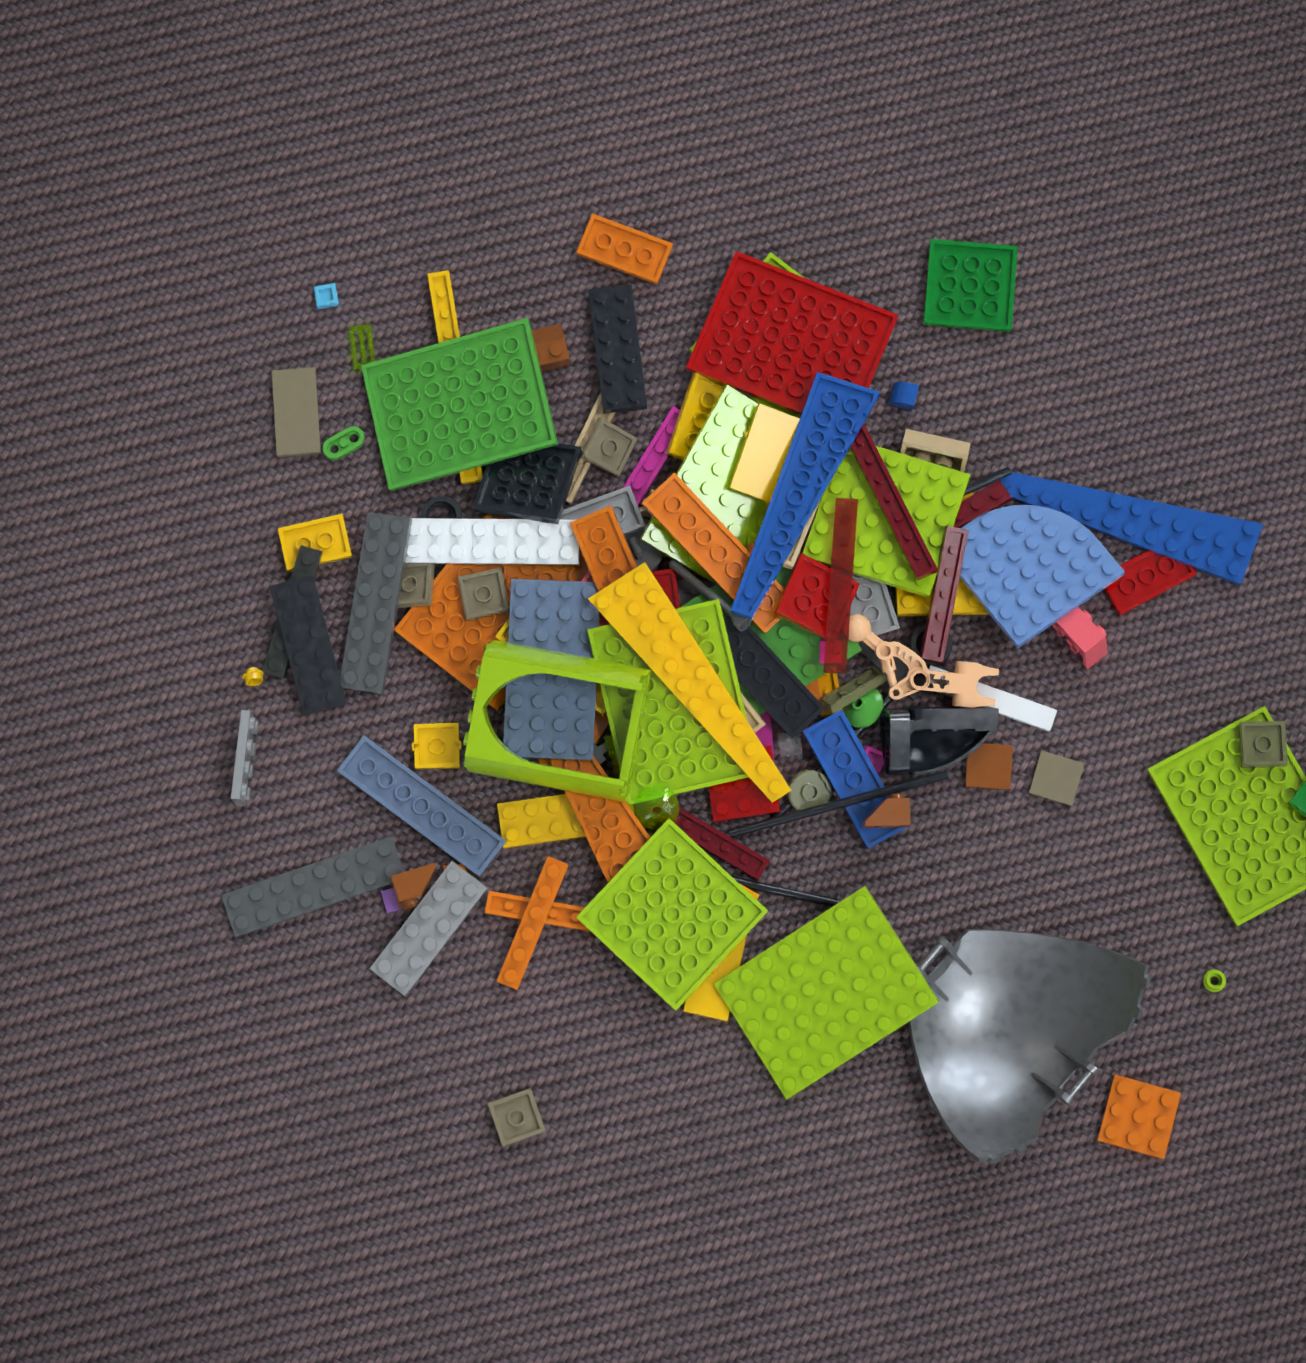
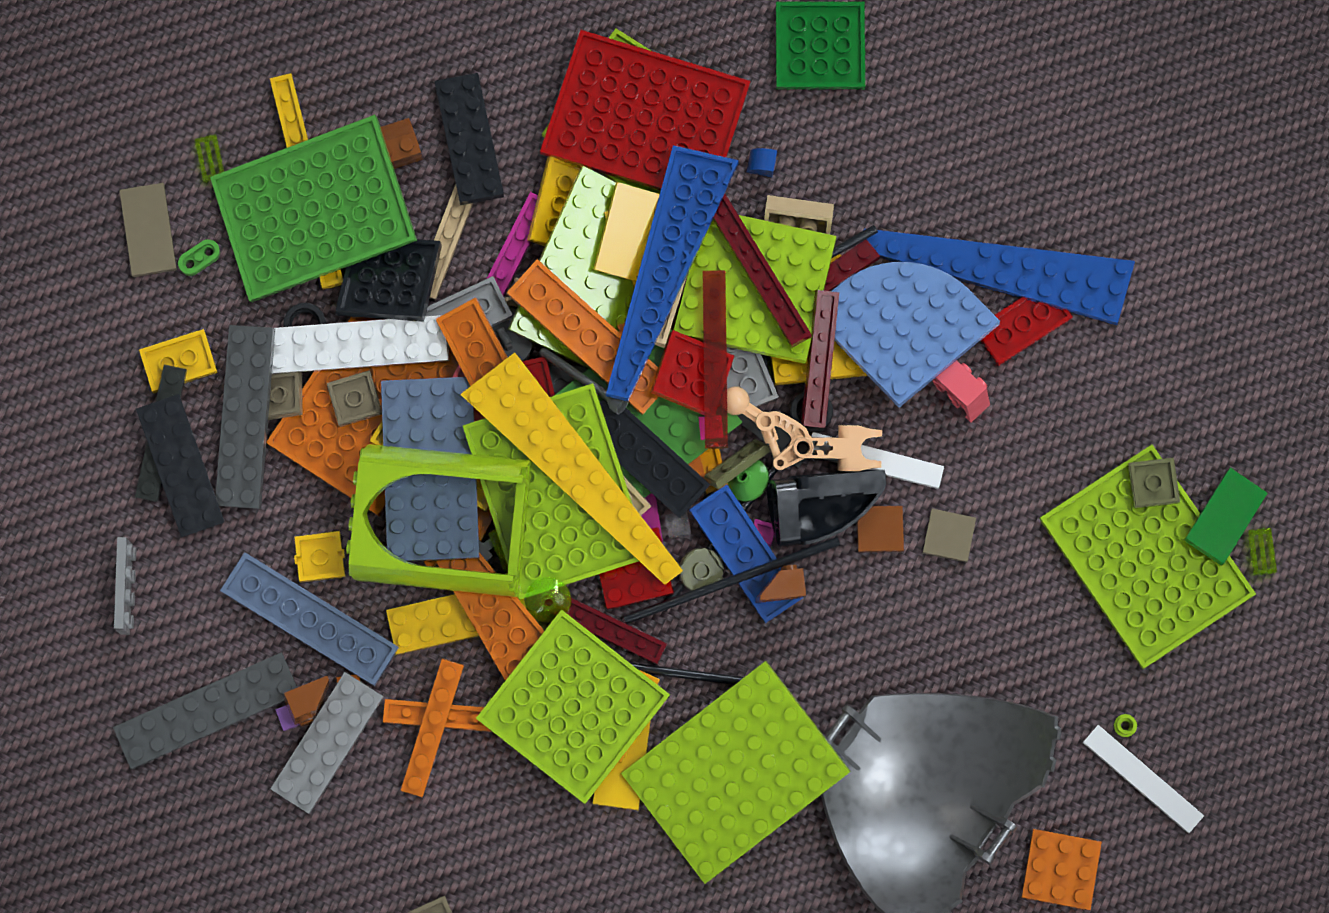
camera: 10 degrees left, 0 degrees up
(253, 676) = (126, 502): yellow plate -> none
(326, 296) = (168, 109): medium azure tile -> none
(608, 447) = (468, 239): dark tan tile -> none
(624, 249) = (468, 37): orange plate -> none
(1227, 1035) = (1143, 779): none -> white tile

